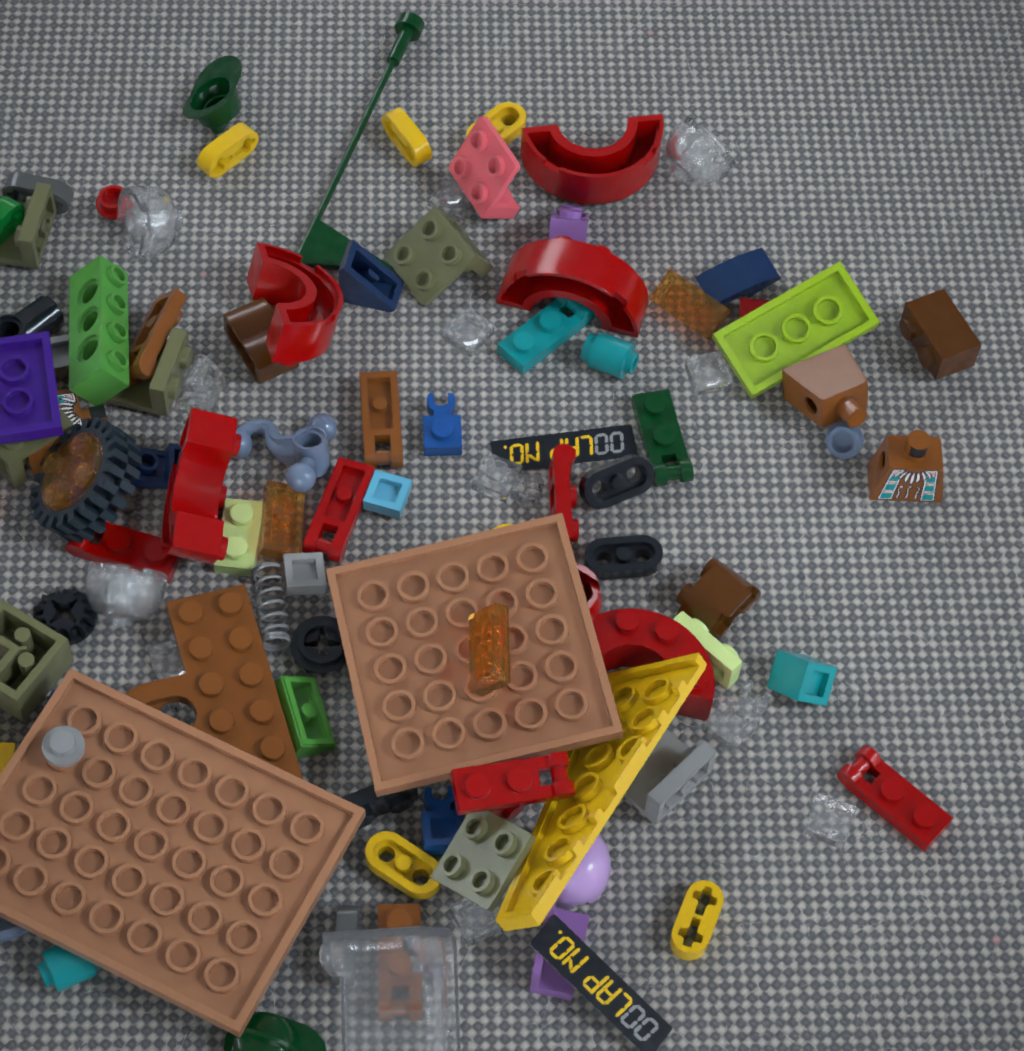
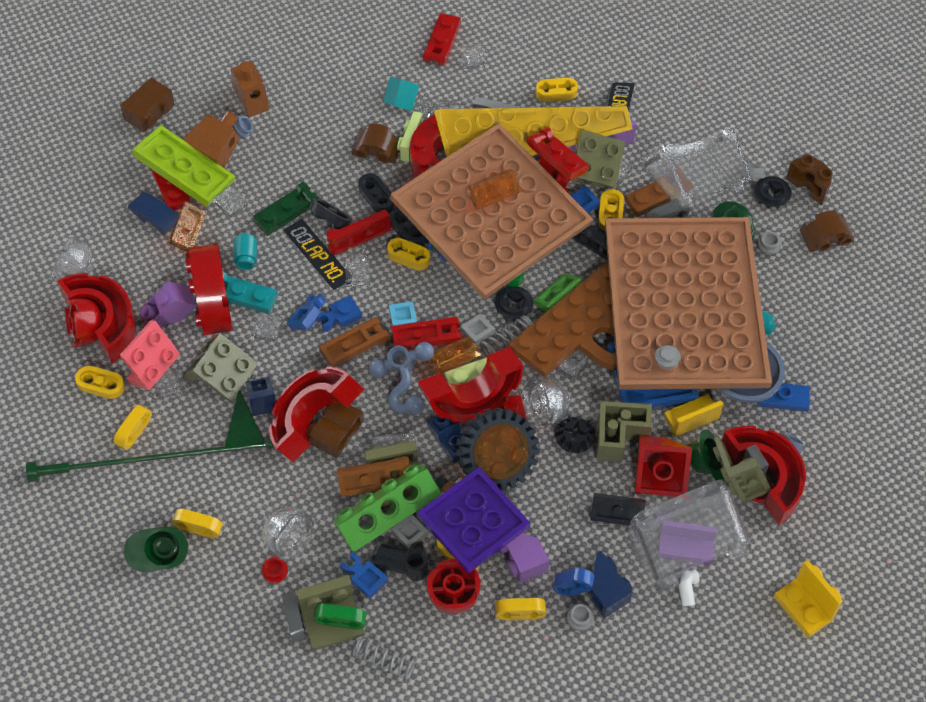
camera: 115 degrees left, 0 degrees up
(32, 282) = (365, 578): none -> blue plate
(460, 379) = (305, 315): none -> blue plate
(592, 127) = (82, 321): none -> red cylinder

